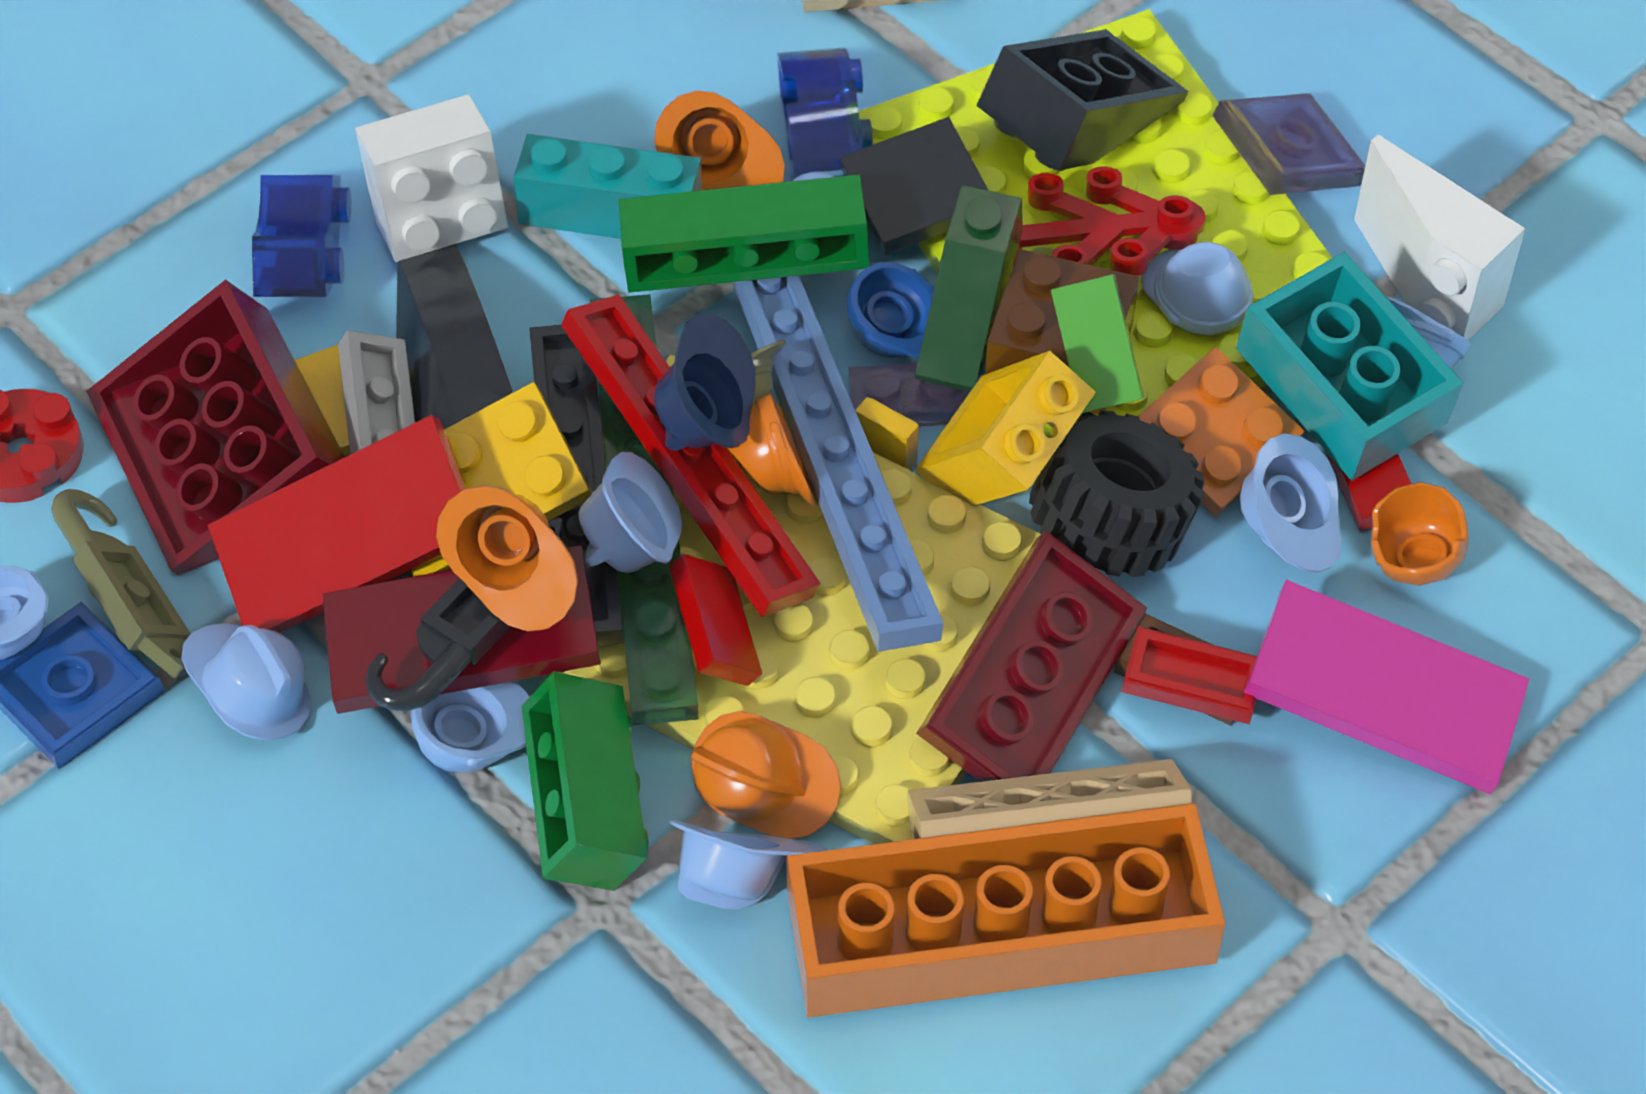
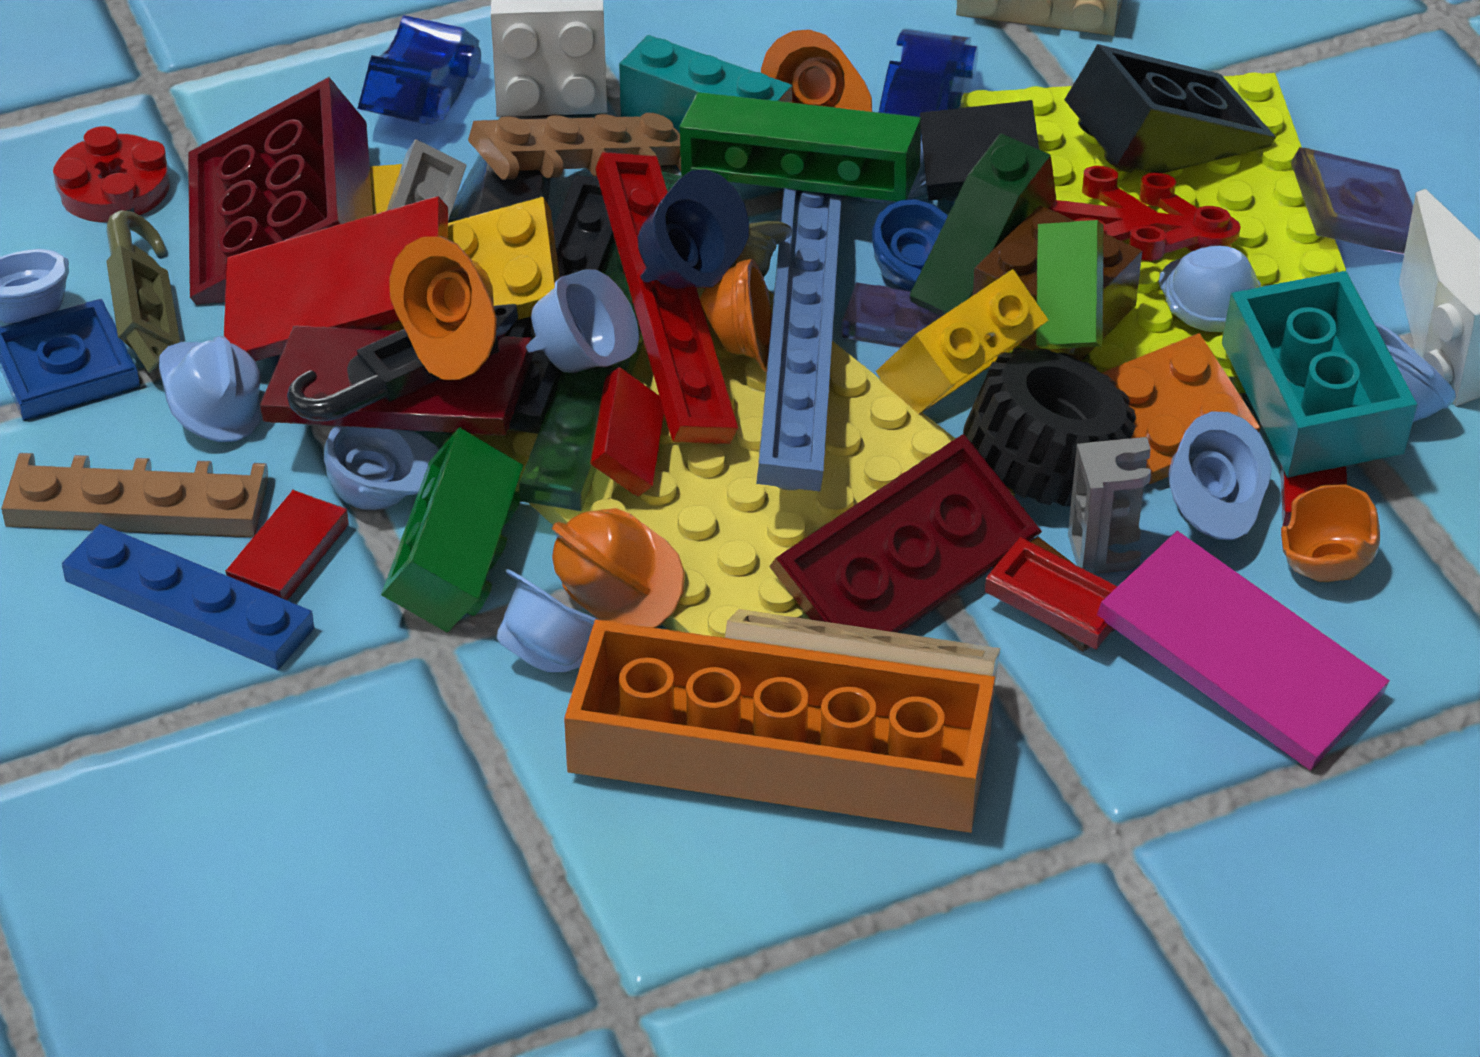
camera: 20 degrees right, 10 degrees down
(224, 833) = (134, 498): none -> medium nougat hinge
(334, 931) = (188, 596): none -> blue plate
(412, 844) = (289, 544): none -> red tile
(510, 282) = (571, 143): none -> medium nougat hinge
(889, 432) = (862, 335): yellow tile -> none
(1203, 566) = (1107, 502): none -> light grey hinge

